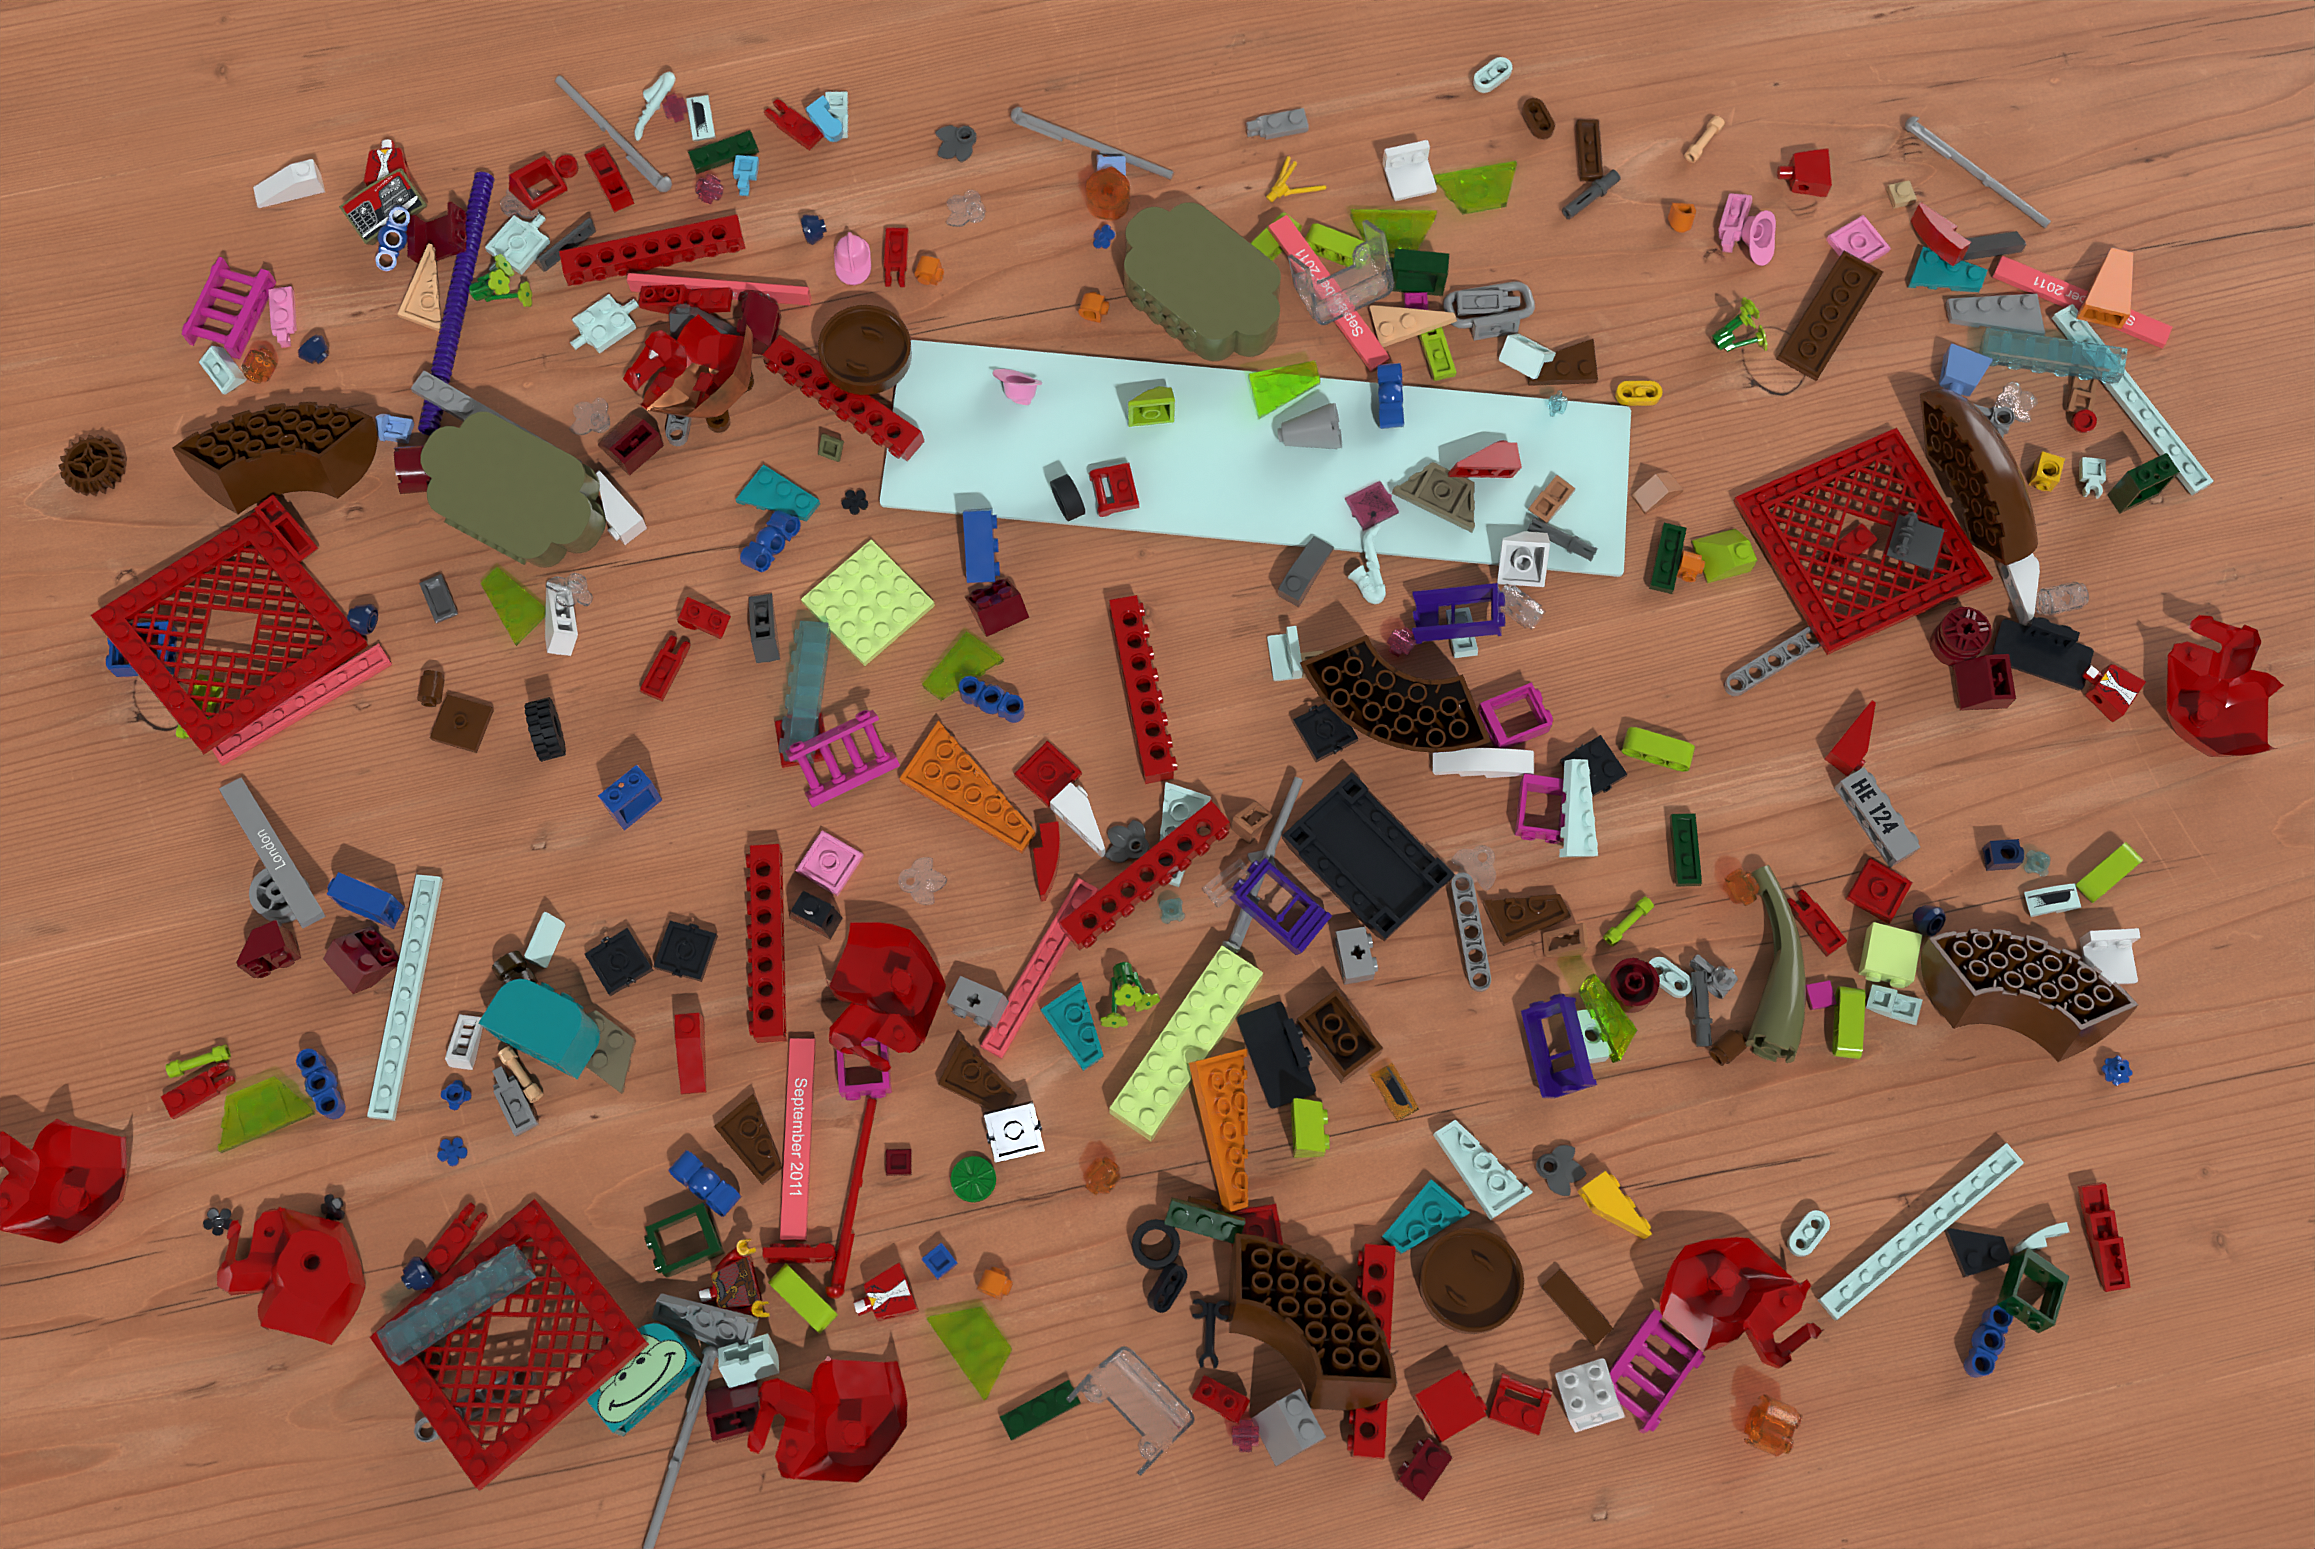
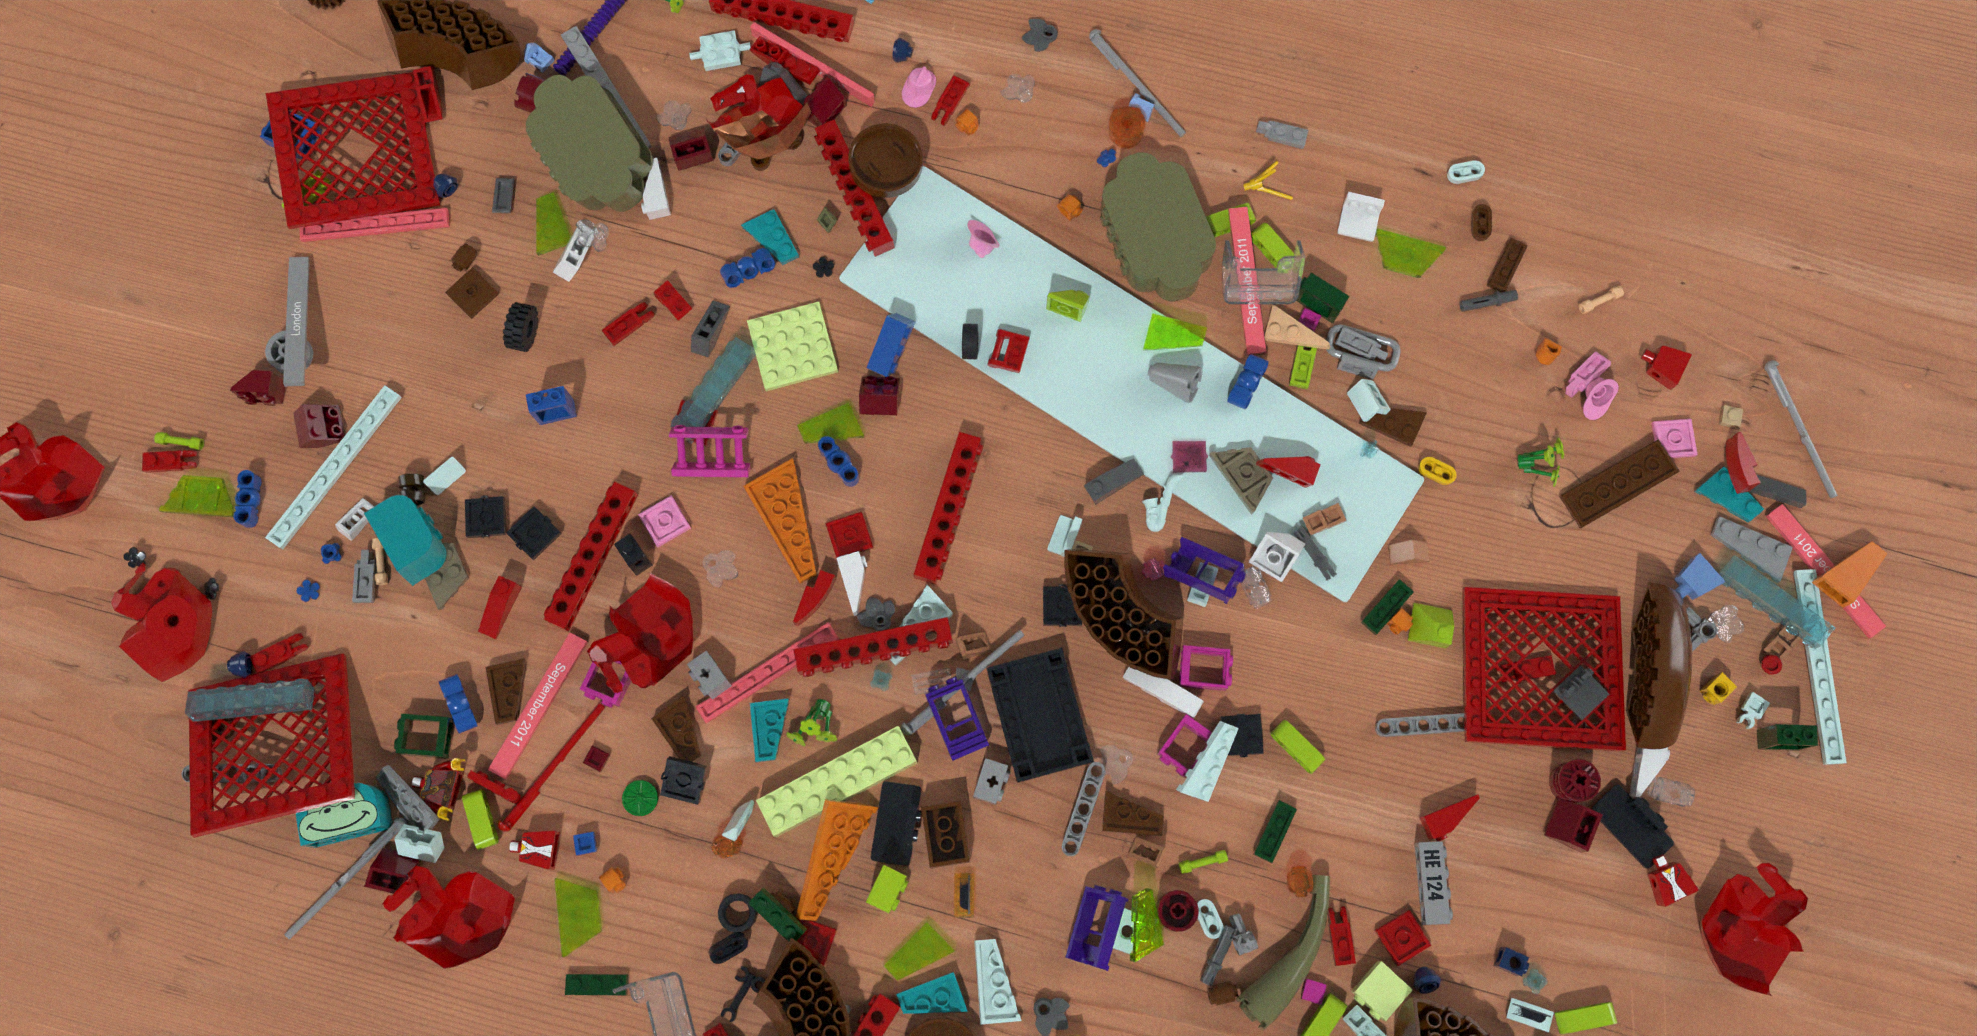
camera: 30 degrees right, 5 degrees up
(365, 900) = (340, 386): blue window -> none
(1101, 1141) = (738, 821): none -> light aqua slope
(1379, 1180) = (918, 953): none -> clear neon green wing
(1402, 227) = (1325, 256): clear neon green wing -> none

